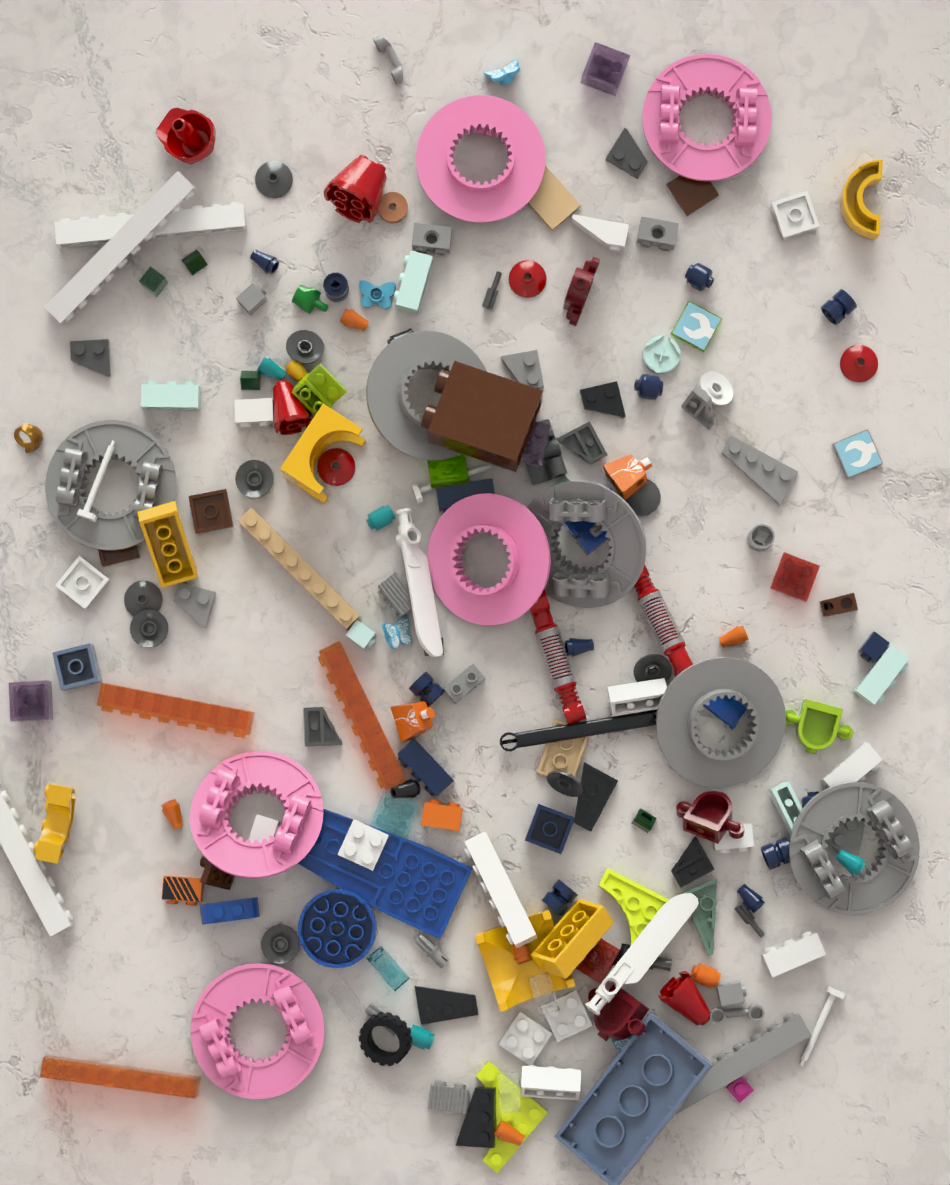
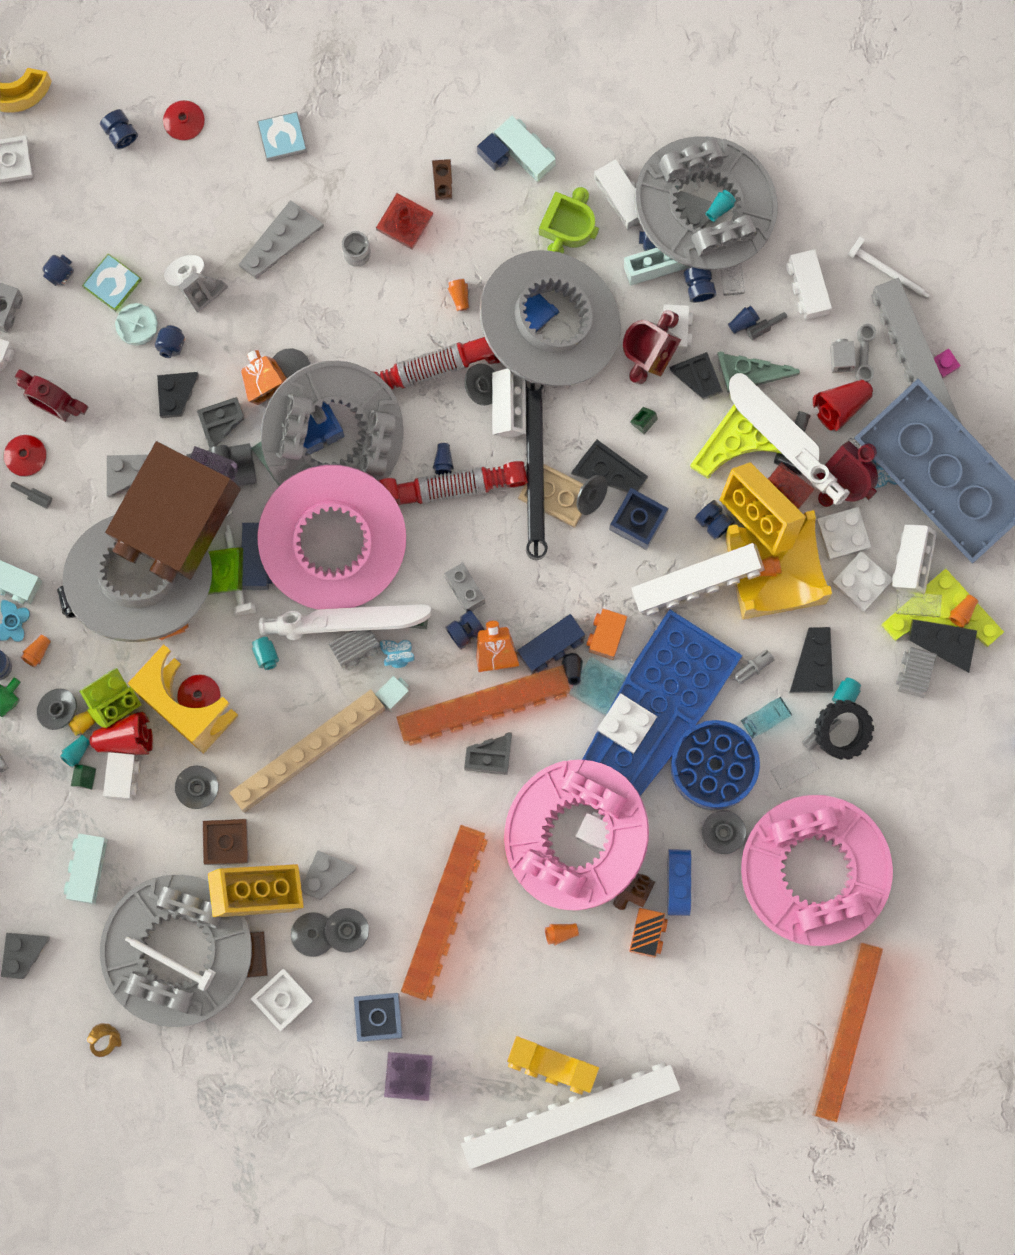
camera: 80 degrees left, 5 degrees down
(544, 994) = (817, 550): clear tile -> none
(705, 975) = (820, 378): orange brick -> none

